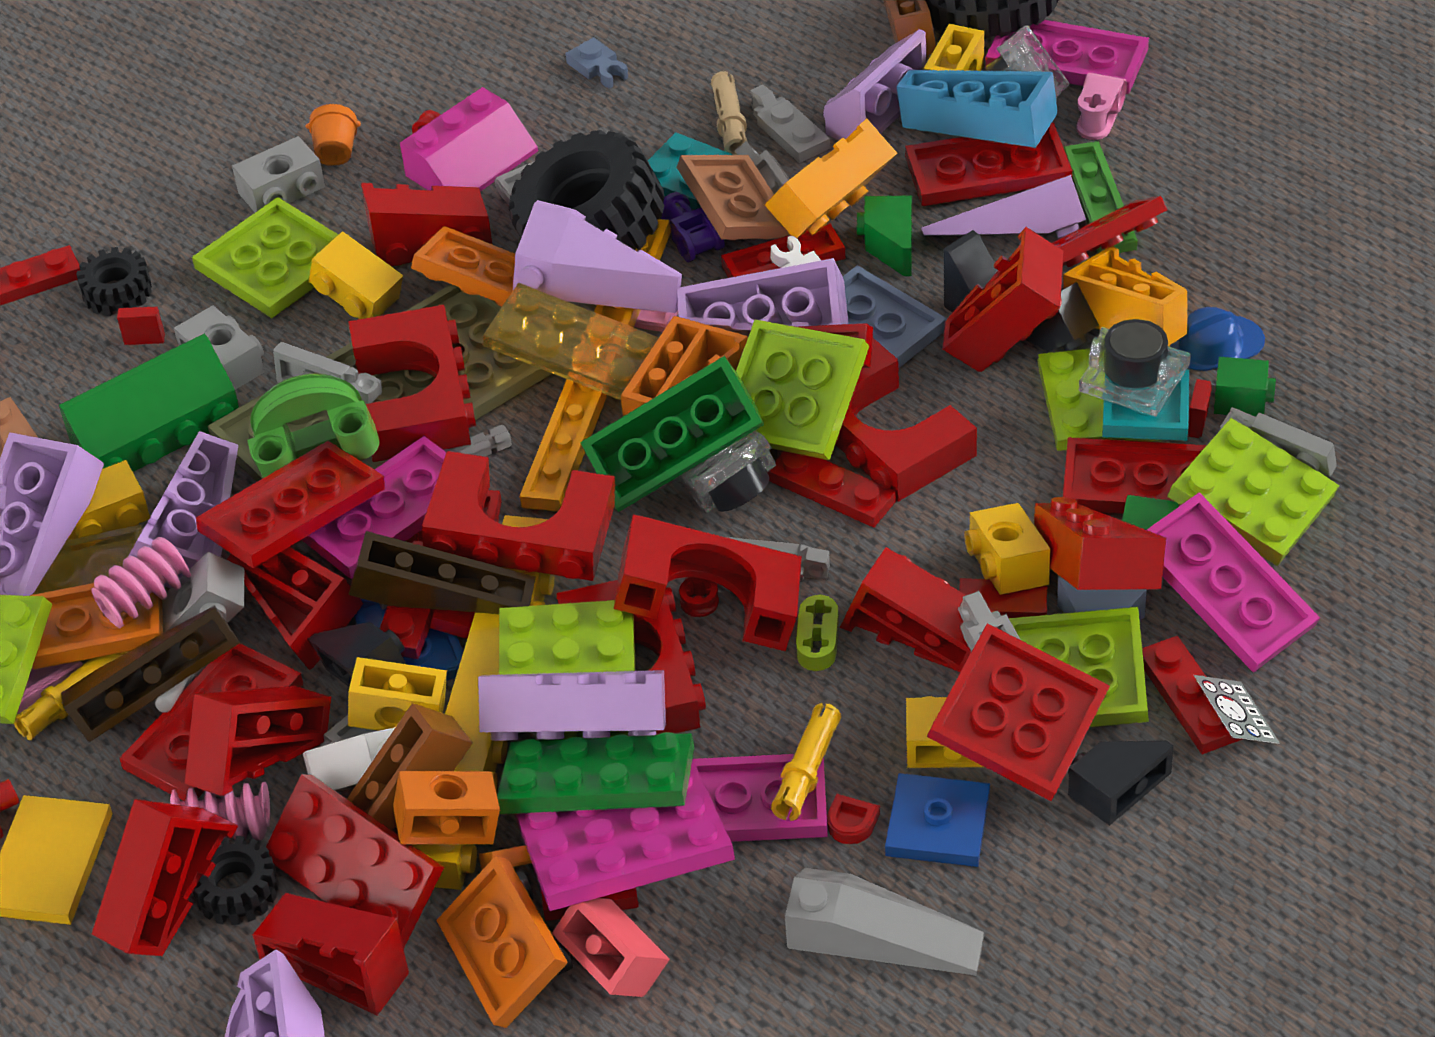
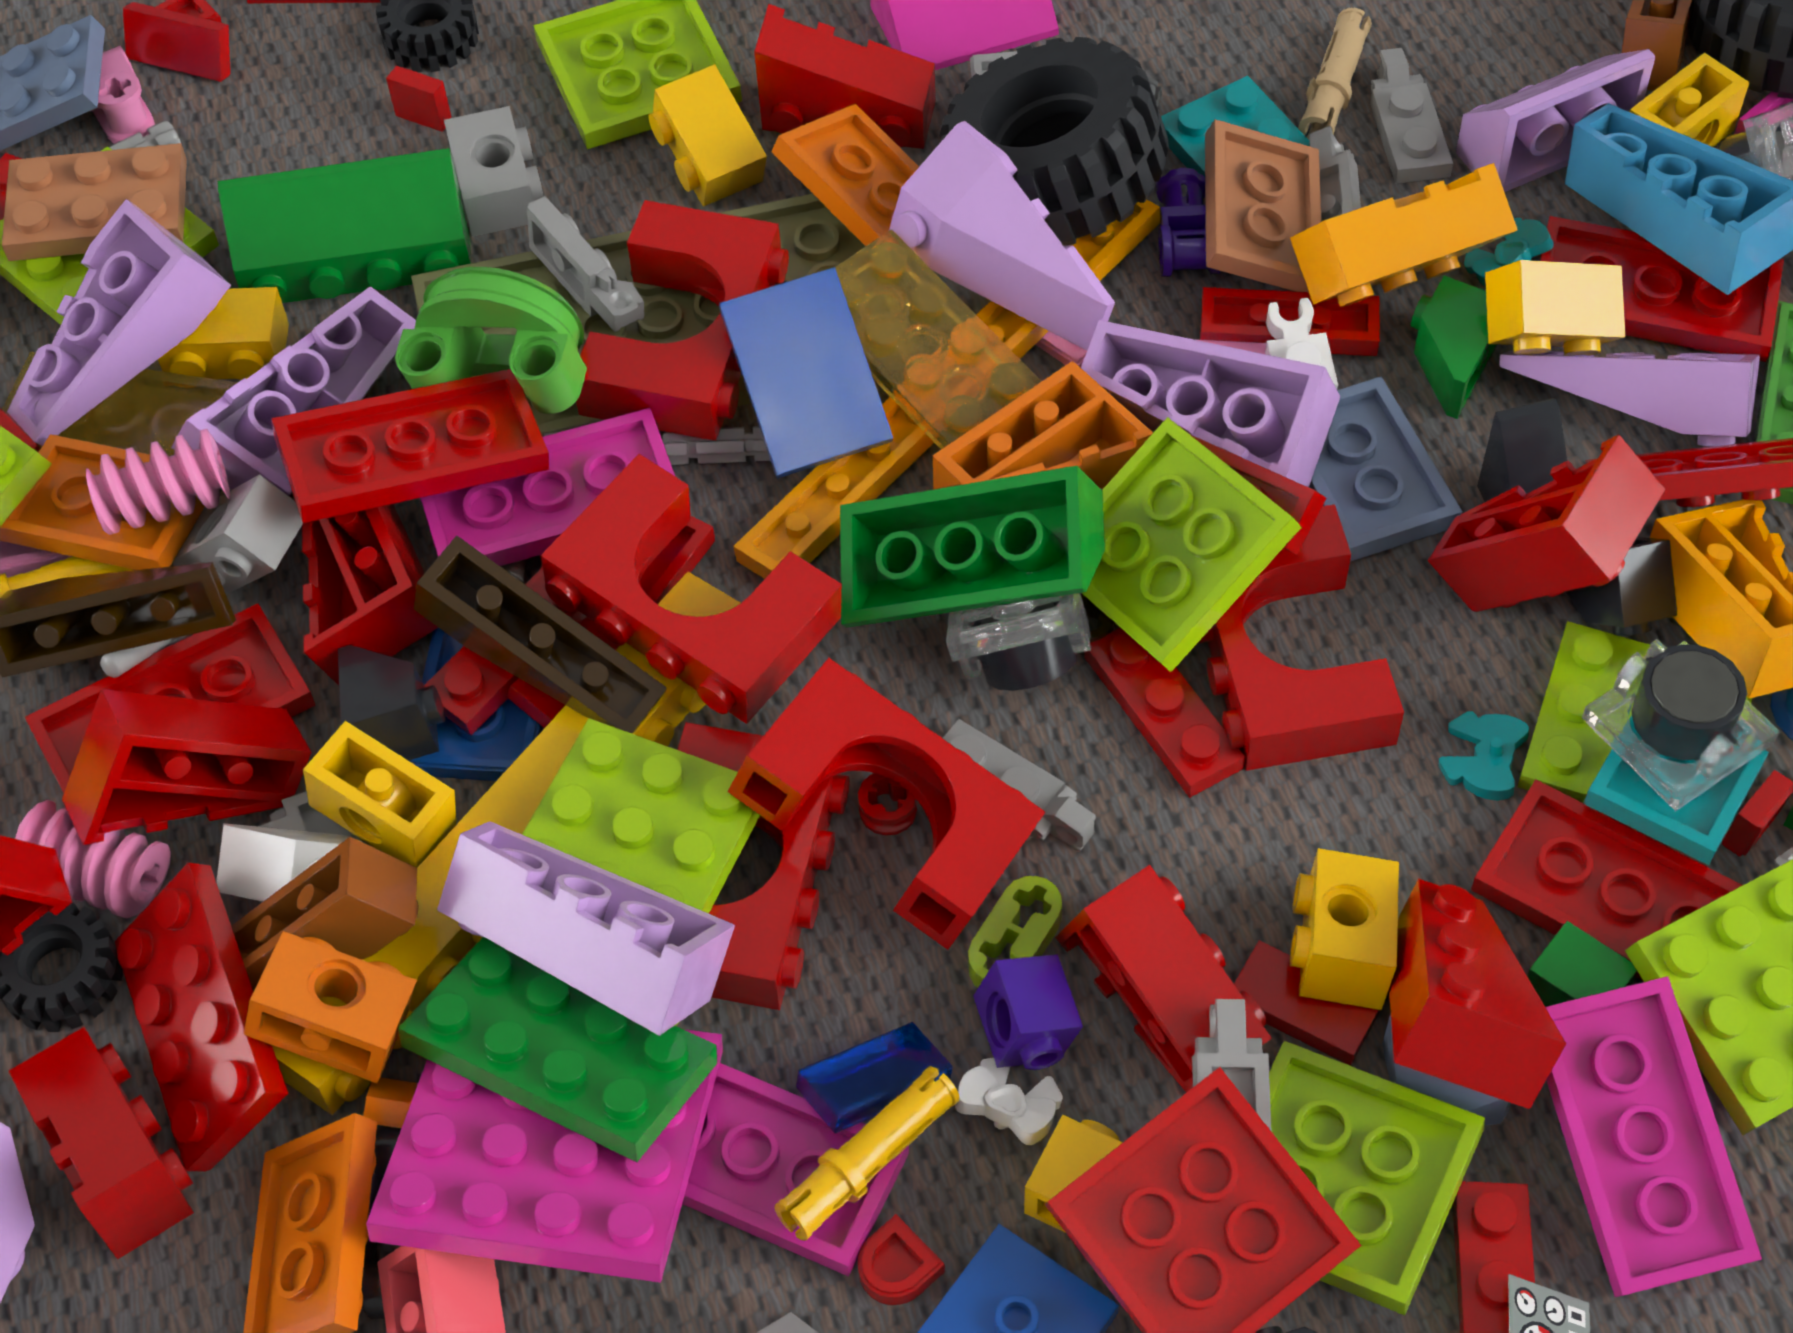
camera: 25 degrees right, 10 degrees up
(513, 379) = (805, 372): none -> tile
(778, 731) = (868, 1076): none -> clear blue tile
(851, 661) = (1027, 1011): none -> dark purple brick
(883, 714) = (986, 1093): none -> white piece
(894, 175) = (1527, 242): none -> teal piece
(940, 187) = (1554, 306): none -> yellow brick
(1035, 446) = (1489, 770): none -> teal piece

